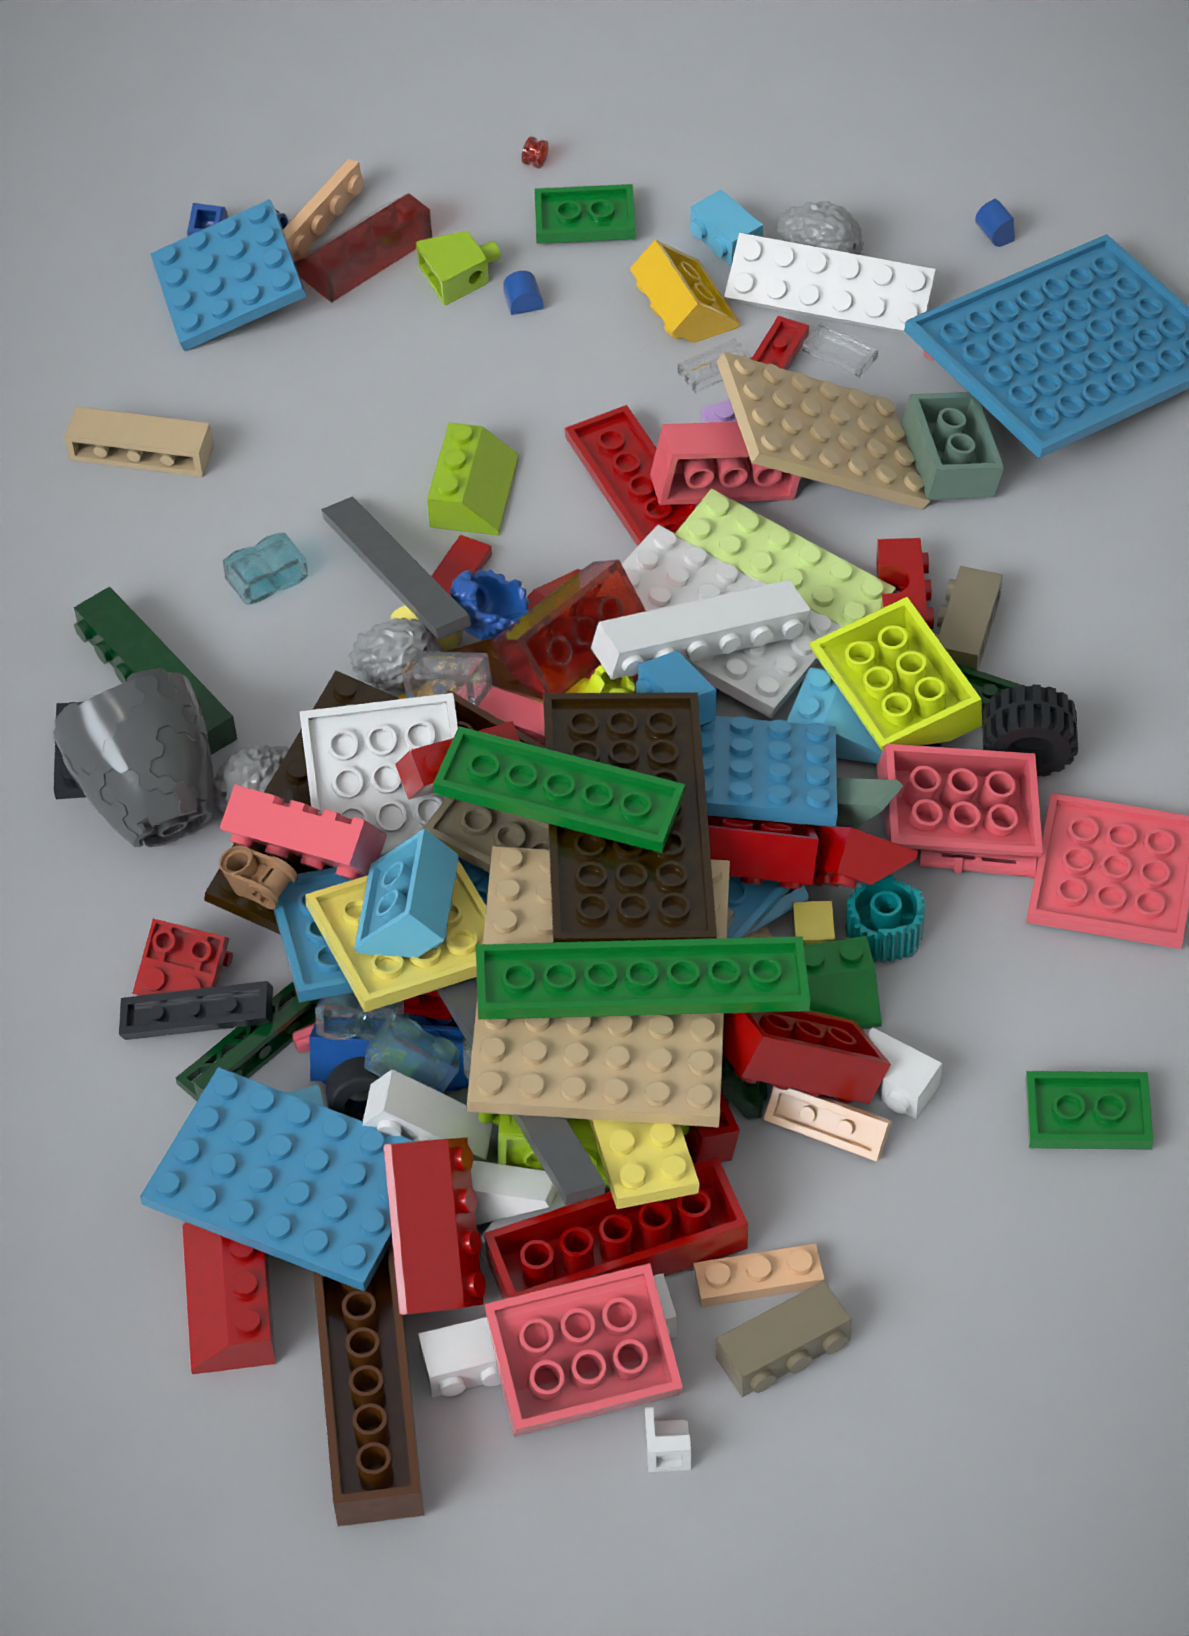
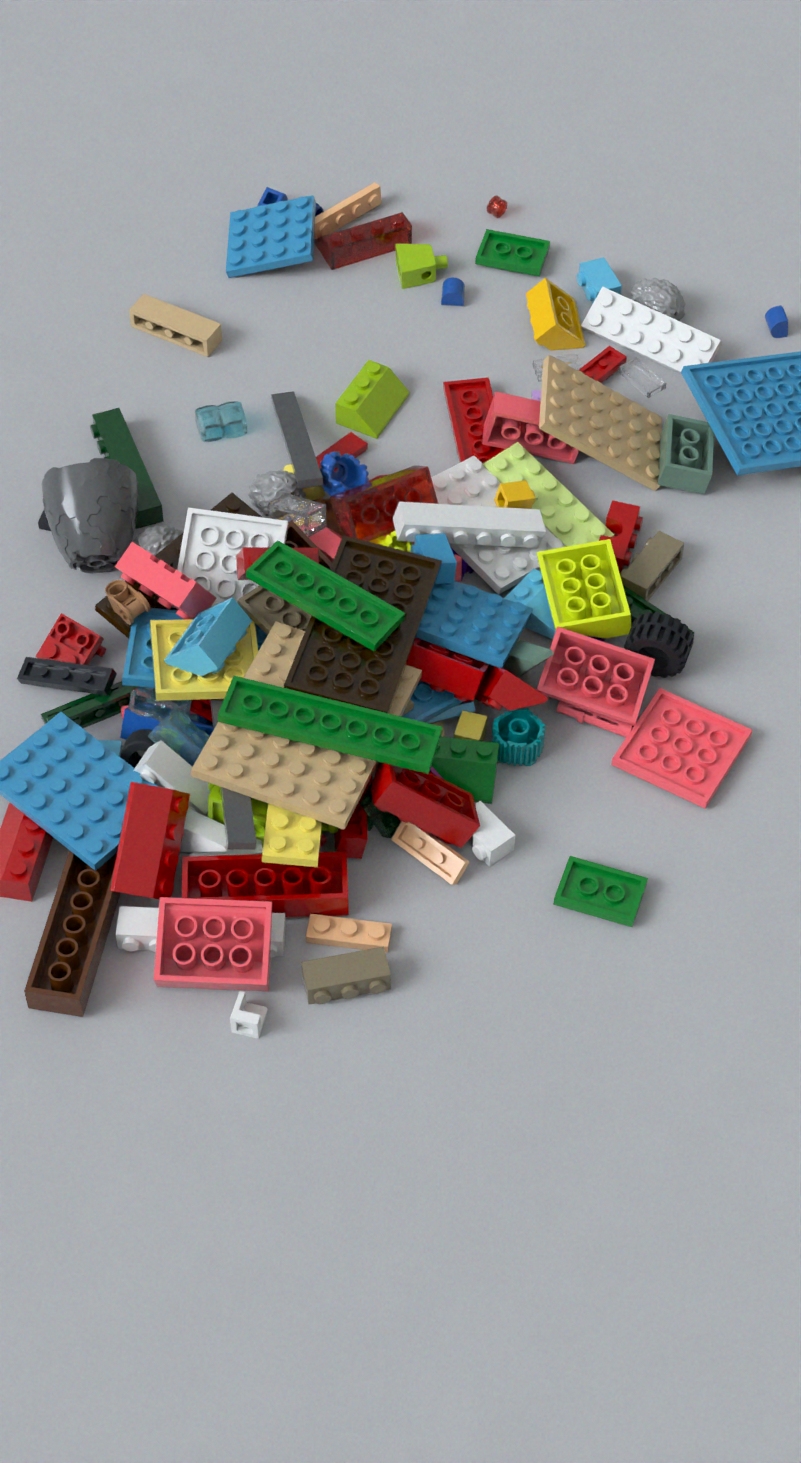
camera: 15 degrees right, 0 degrees up
(744, 569) = (515, 495): none -> yellow brick

